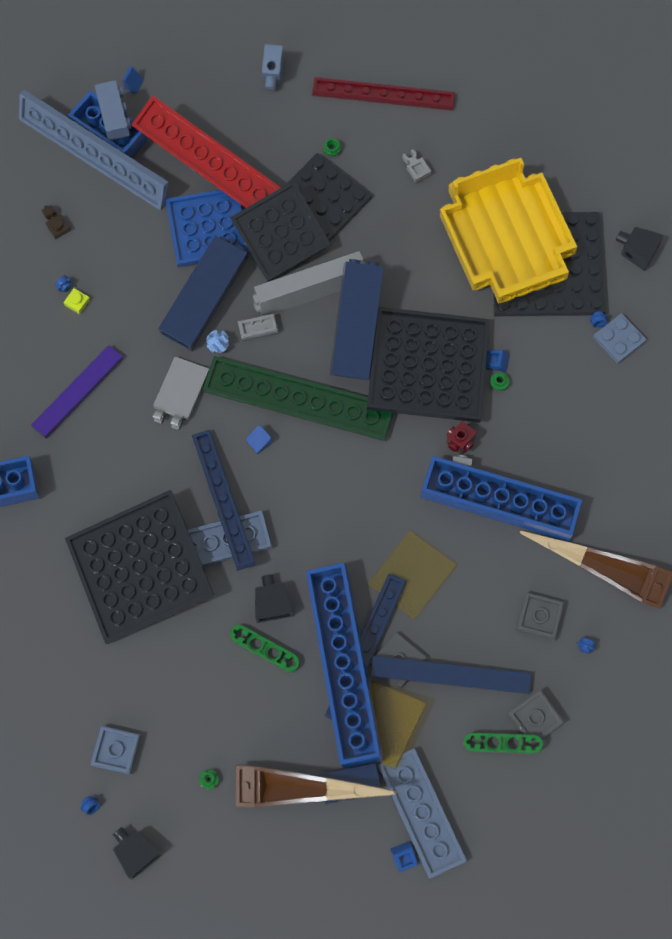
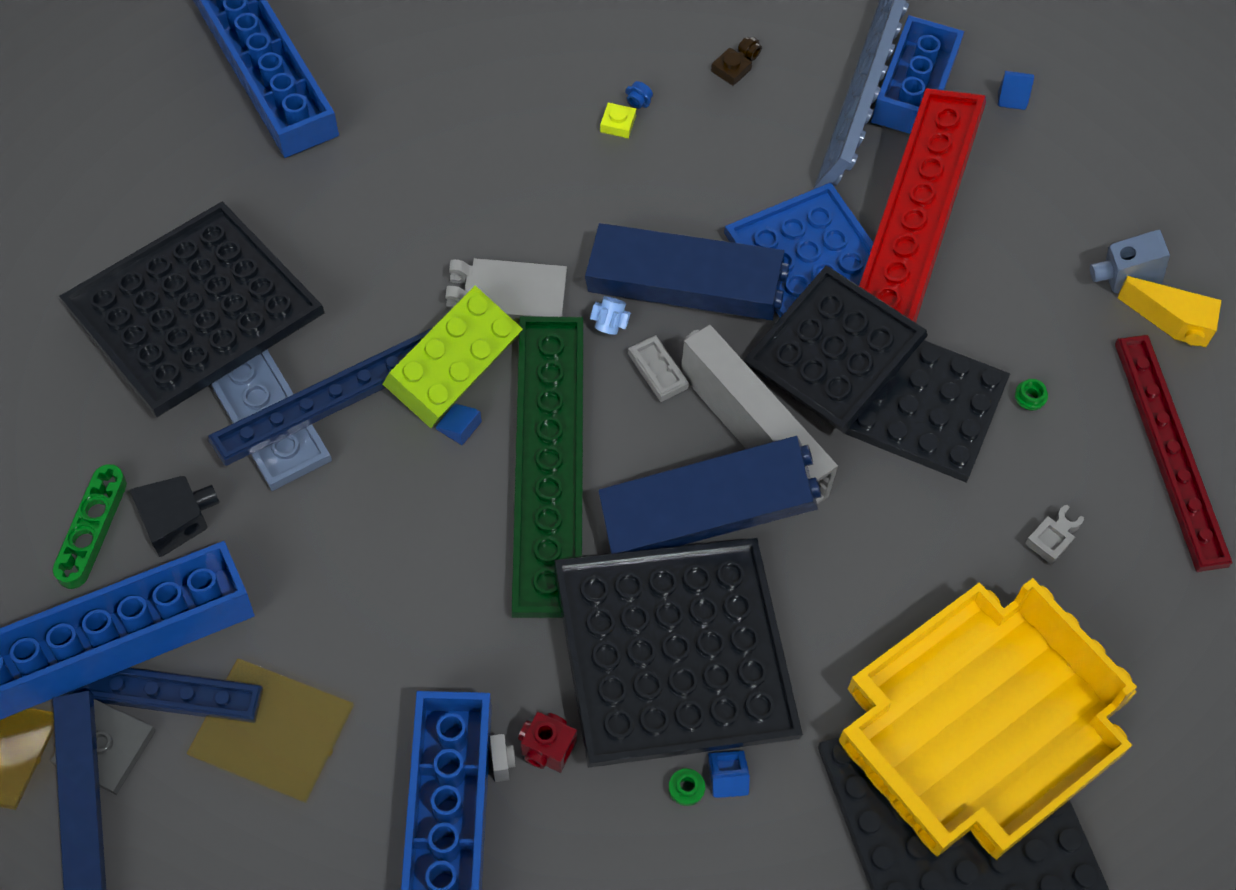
camera: 70 degrees right, 10 degrees down
(77, 391) = (471, 159): dark purple tile -> none
(113, 110) = (939, 59): sand blue brick -> none
(221, 429) = (452, 356): none -> lime brick
(306, 58) = (1175, 311): none -> yellow slope

